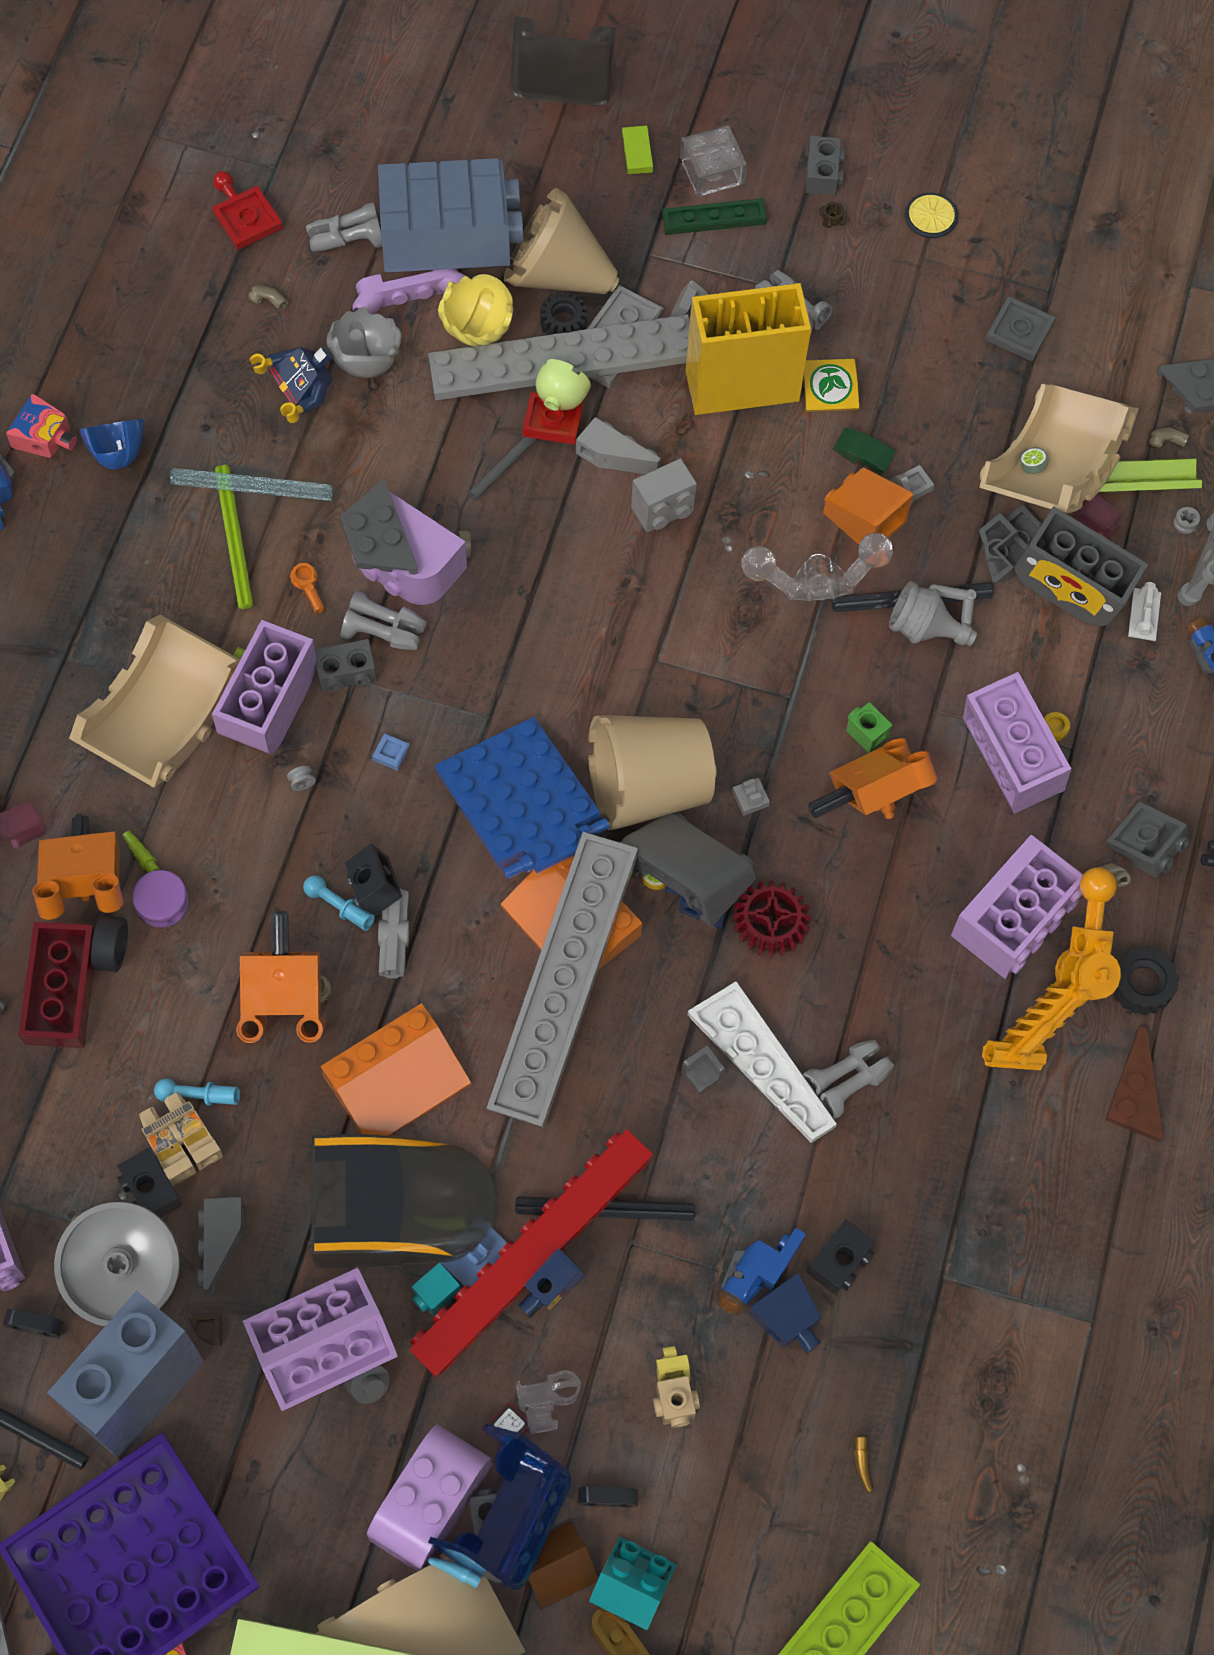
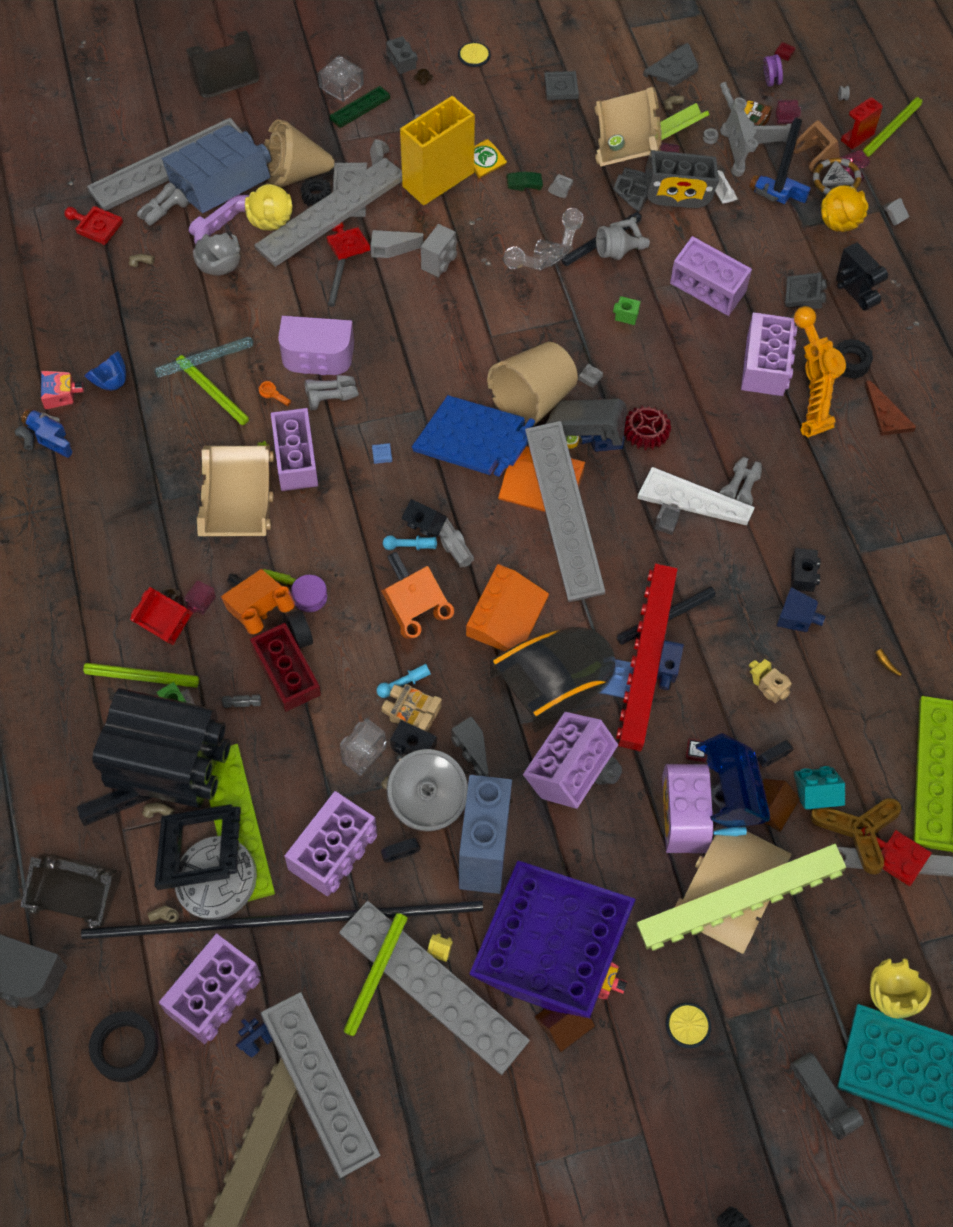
camera: 30 degrees left, 5 degrees down
(76, 1154) = (363, 746): none -> clear brick
(300, 377) = (192, 288): dark blue torso -> none
(301, 778) = (343, 491): light grey bush -> none
(343, 658) = (324, 420): dark grey brick -> none
(355, 171) = (142, 174): none -> light grey plate
(377, 533) = (301, 339): dark grey wing -> none
(435, 1290) = (609, 704): teal brick -> none
(538, 1399) = (706, 730): clear piece -> none
(560, 386) = (344, 221): yellowish green cylinder -> none
(637, 150) = (294, 93): lime tile -> none
(756, 1267) = (767, 599): blue plate -> none
(868, 505) = (548, 204): orange slope -> none
(877, 780) = (654, 329): orange piece -> none

